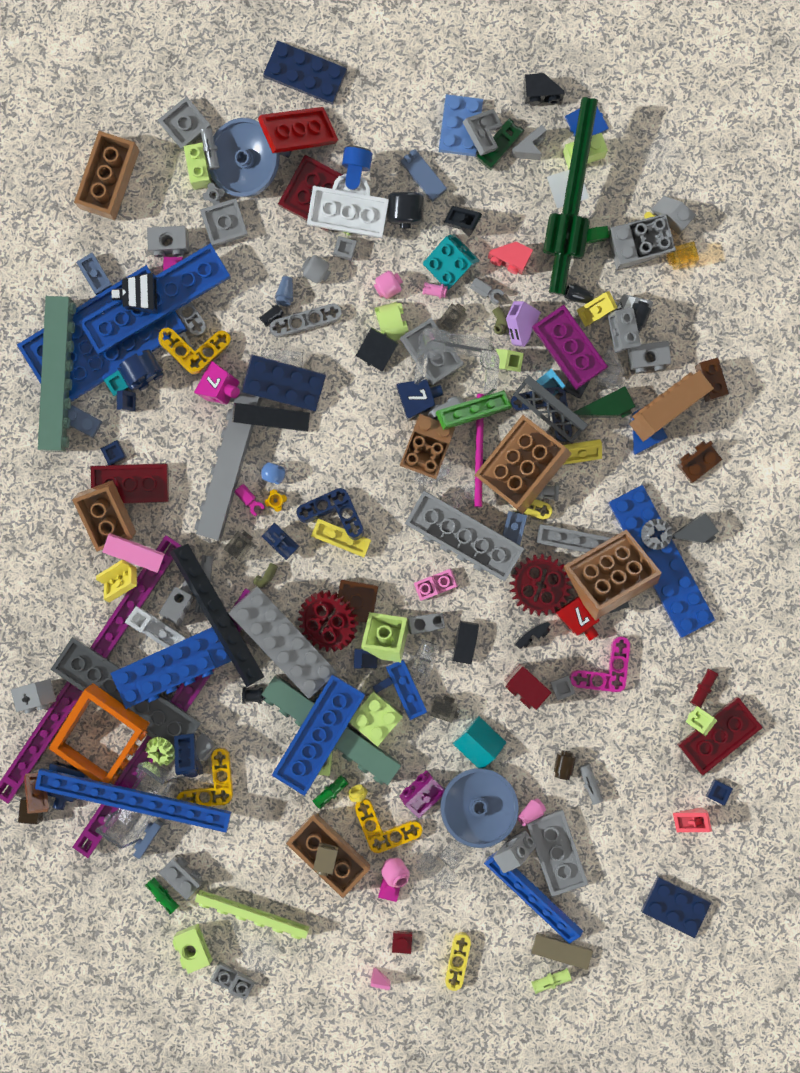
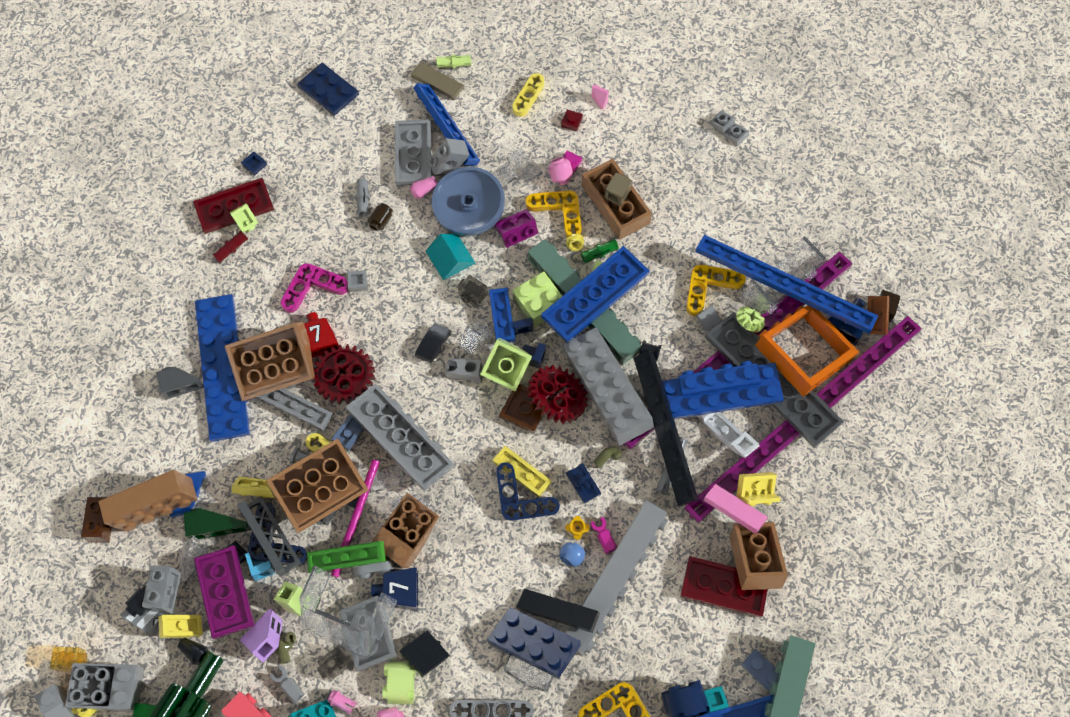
camera: 170 degrees left, 20 degrees down
(33, 696) = (865, 403): light grey brick -> none
(113, 452) = (735, 626): dark blue tile -> none
(126, 401) = (709, 675): dark blue plate -> none
(143, 844) = (781, 252): sand blue plate -> none
(161, 895) = (777, 206): green pin -> none
(175, 611) = (707, 444): light grey torso -> none
(181, 876) = (755, 217): light grey bracket -> none
(186, 758) = (726, 306): dark blue bracket -> none
(193, 937) = (756, 167): yellowish green brick -> none
(217, 385) = (604, 662): dark pink torso -> none
(240, 545) = (625, 492): clear smoke brick -> none
(246, 912) = (698, 171): yellowish green plate -> none
(435, 584) = (443, 404): bright pink slope -> none
(530, 689) = (388, 285): dark red brick -> none
(538, 631) = (362, 335): black slope -> none
(648, 530) = (221, 391): light grey gear -> none
(659, 351) = (138, 556): light grey brick -> none
(692, 820) = (284, 145): coral slope -> none
(699, 462) = (145, 446): reddish brown bracket -> none

